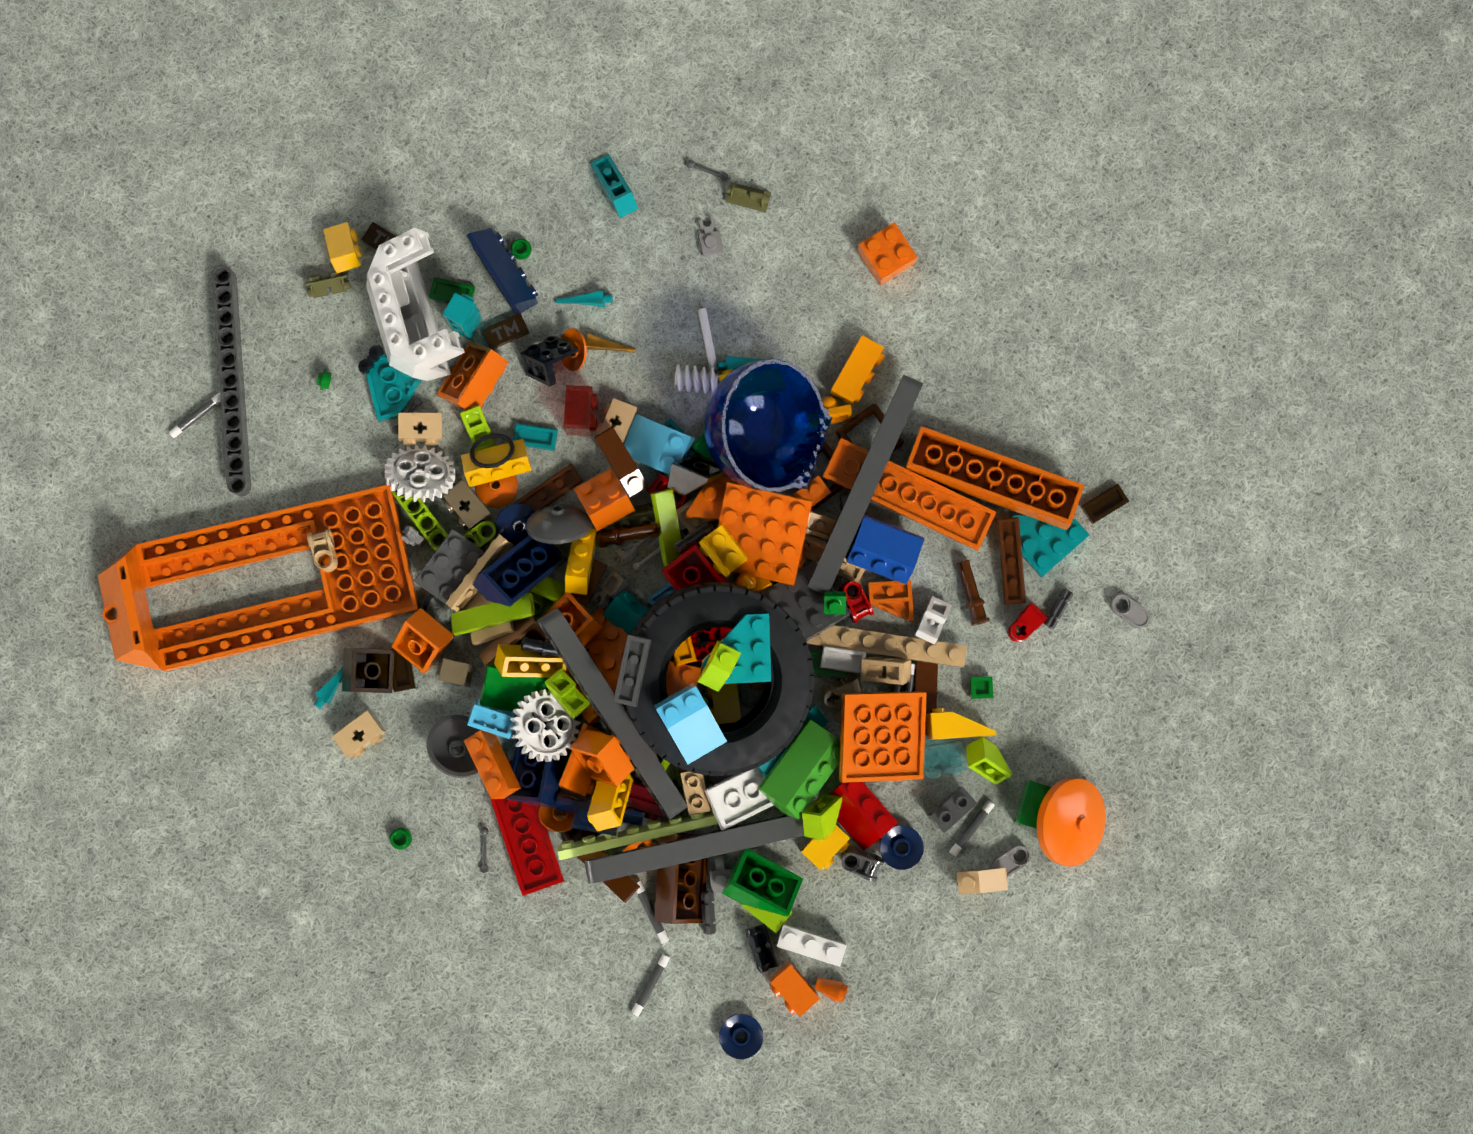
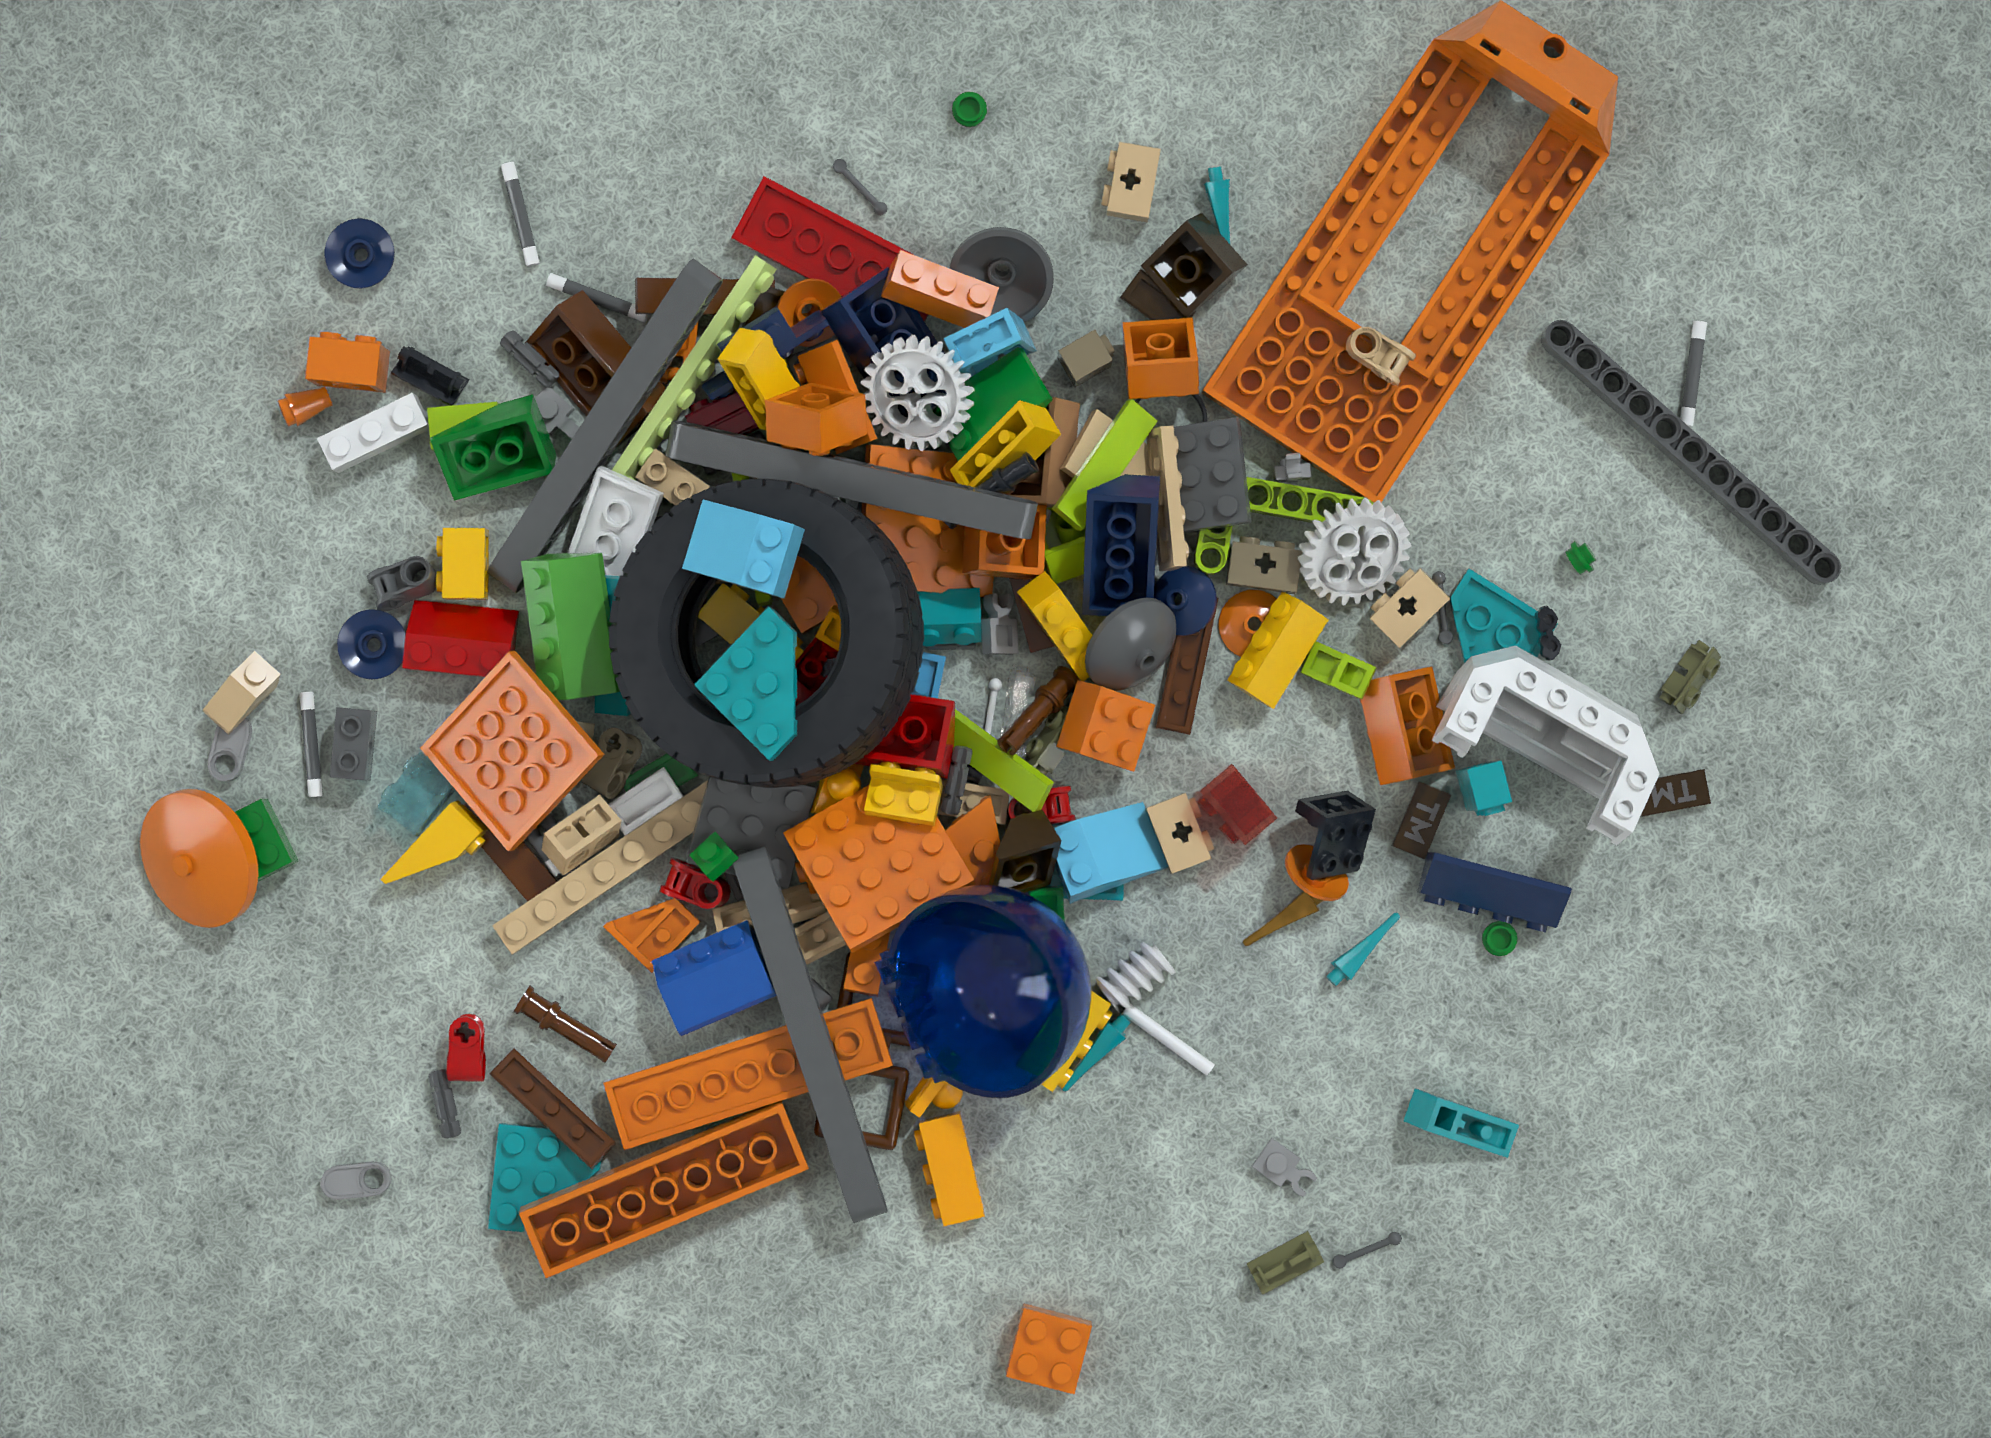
camera: 140 degrees right, 5 degrees up
(342, 247) = (1714, 736): yellow brick -> none
(444, 289) = (1533, 807): green tile -> none
(472, 457) = (1322, 658): black tyre -> none
(536, 436) = (1263, 727): teal tile -> none
(566, 694) = (927, 452): lime slope -> none
(621, 461) = (1127, 789): reddish brown slope -> none
(632, 670) = (865, 545): dark grey plate -> none
(719, 666) = (768, 644): lime slope -> none
(821, 816) = (498, 591): lime slope -> none
(933, 620) = (580, 948): white brick -> none
(981, 687) = (450, 921): green plate -> none
(987, 760) = (364, 840): lime slope -> none
(1105, 503) = (504, 1285): dark brown tile -> none

